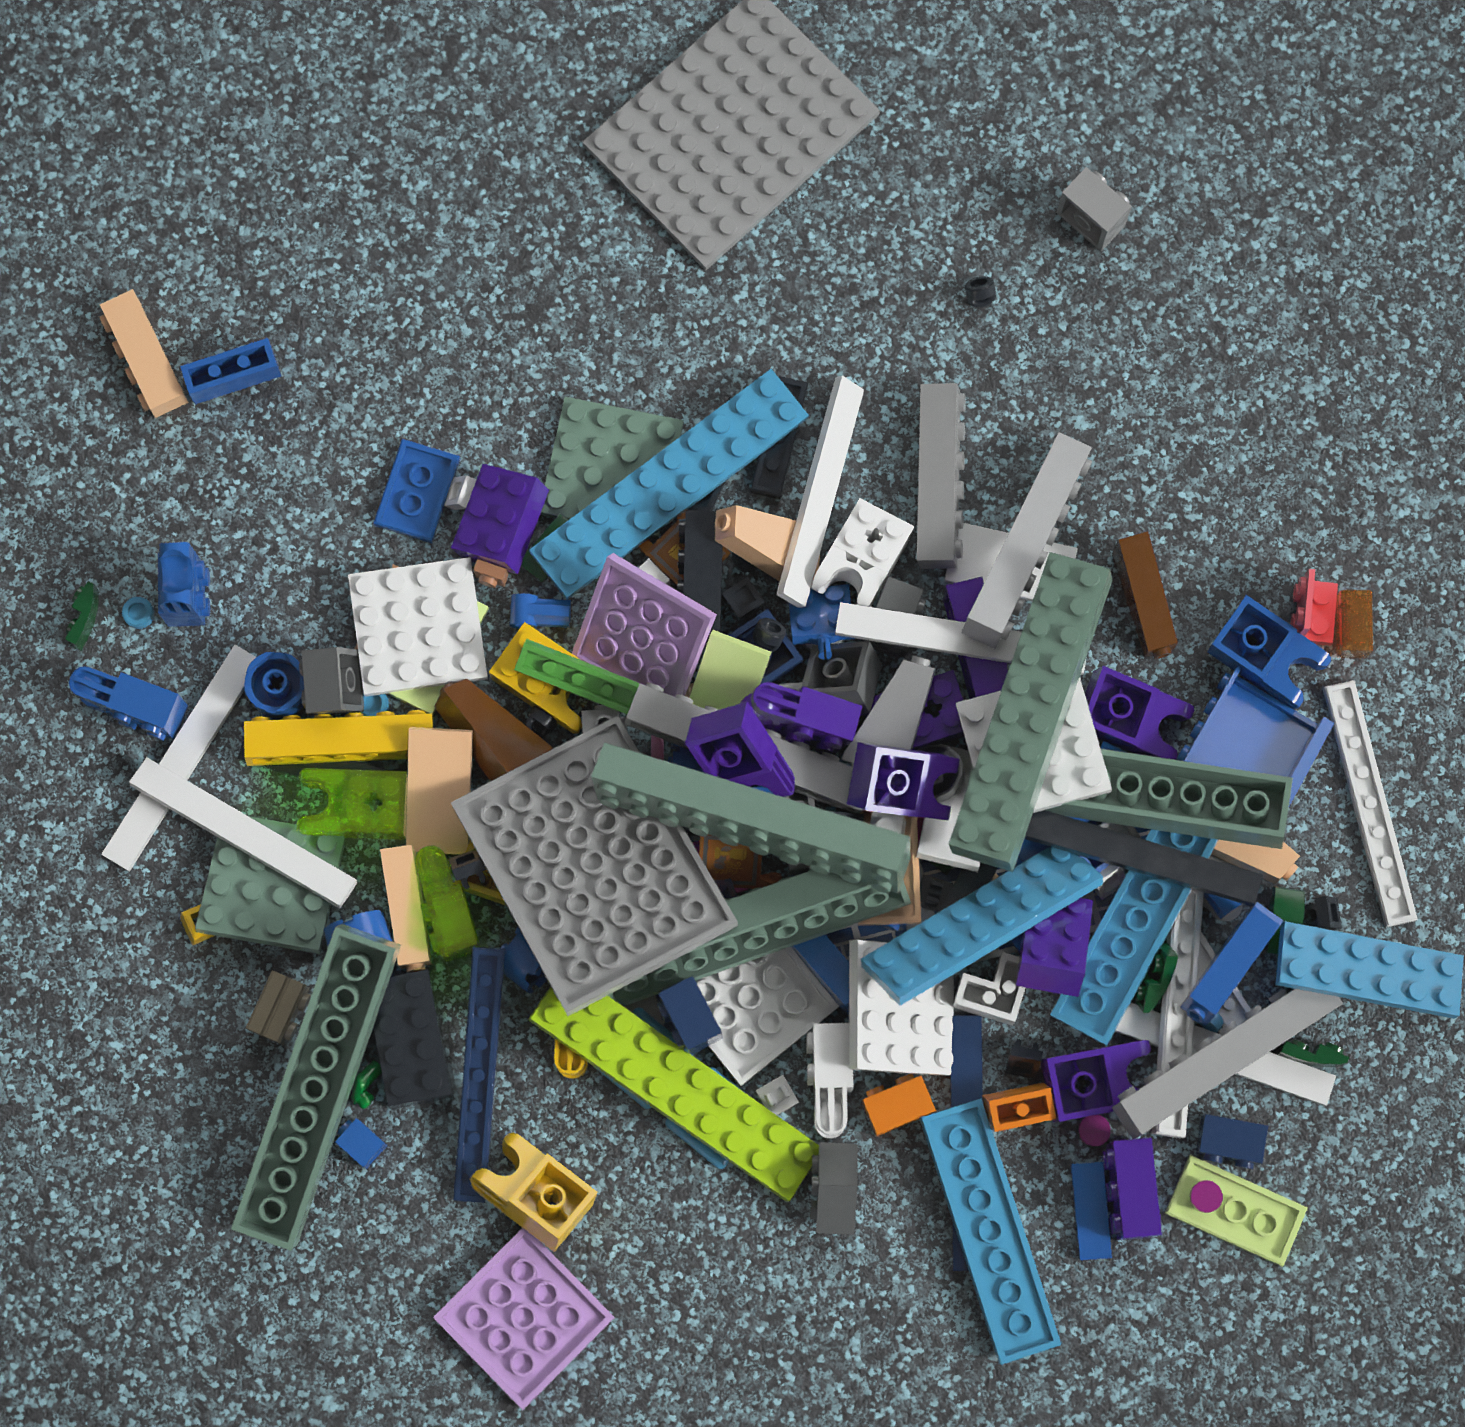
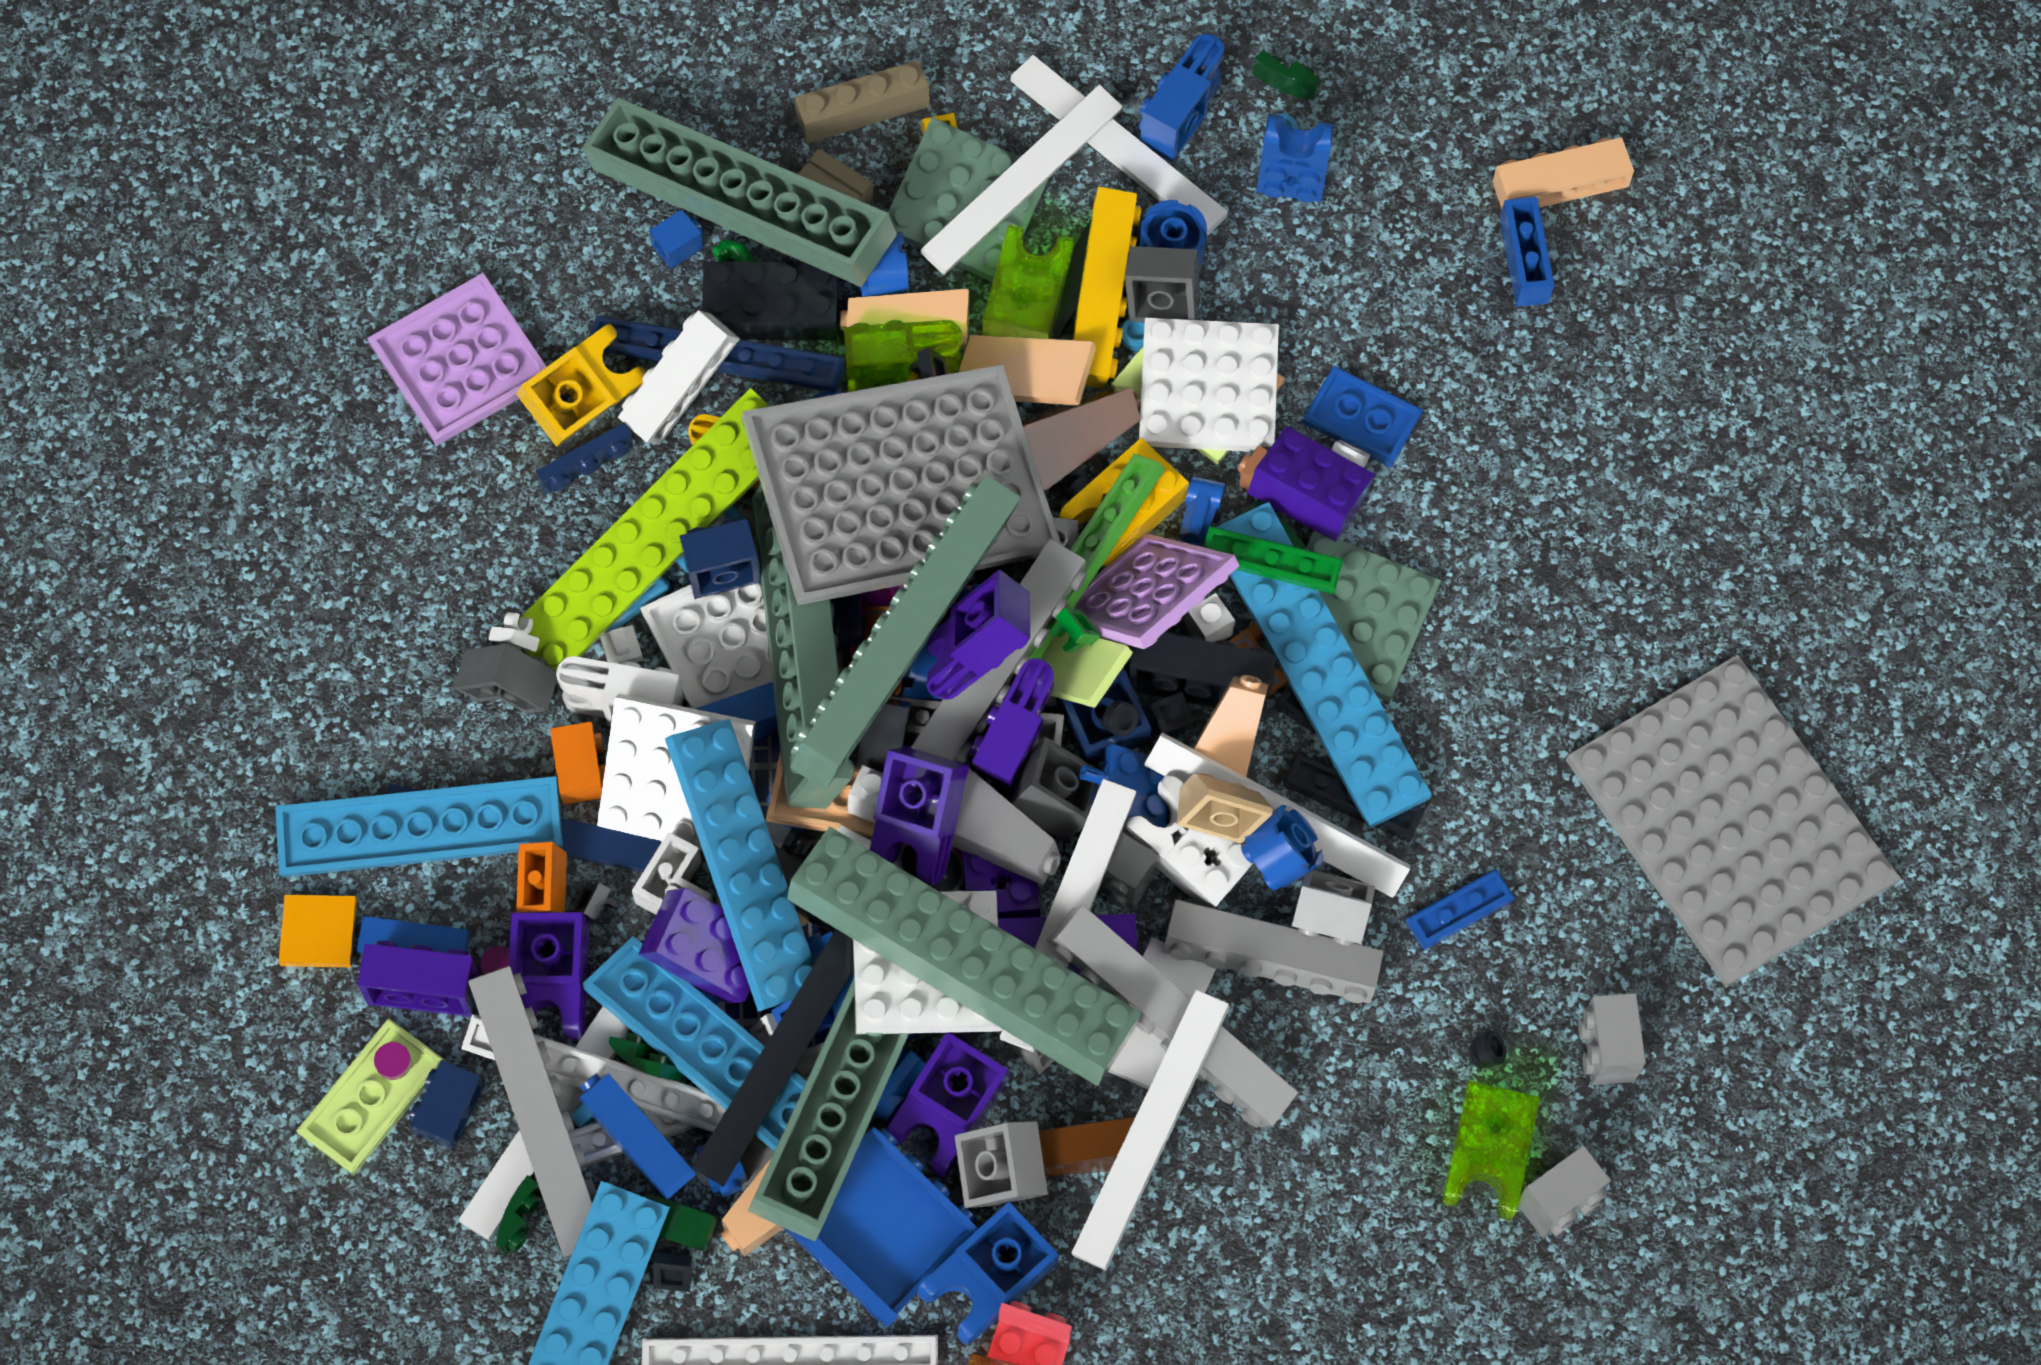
camera: 100 degrees right, 10 degrees down
(183, 1001) = (862, 101): none -> dark tan brick
(513, 1099) = (678, 377): none -> white brick
(588, 533) = (1277, 560): none -> green tile
(604, 1172) = (585, 459): none -> dark blue plate
(699, 681) = (1077, 626): none -> green tile
(797, 1186) = (515, 634): none -> white tile
(837, 527) = (1221, 808): none -> tan slope
(855, 477) = (1283, 848): none -> blue brick
(860, 334) = (1459, 909): none -> blue tile
(892, 429) = (1333, 907): none -> brick
(955, 189) = (1612, 1039): none -> light grey brick
(1072, 270) = (1489, 1155): none -> clear neon green brick
(1100, 1298) = (318, 931): none -> light orange tile
(1133, 534) = (1150, 1130): none -> white tile
(1185, 655) = (1001, 1164): none -> light grey brick

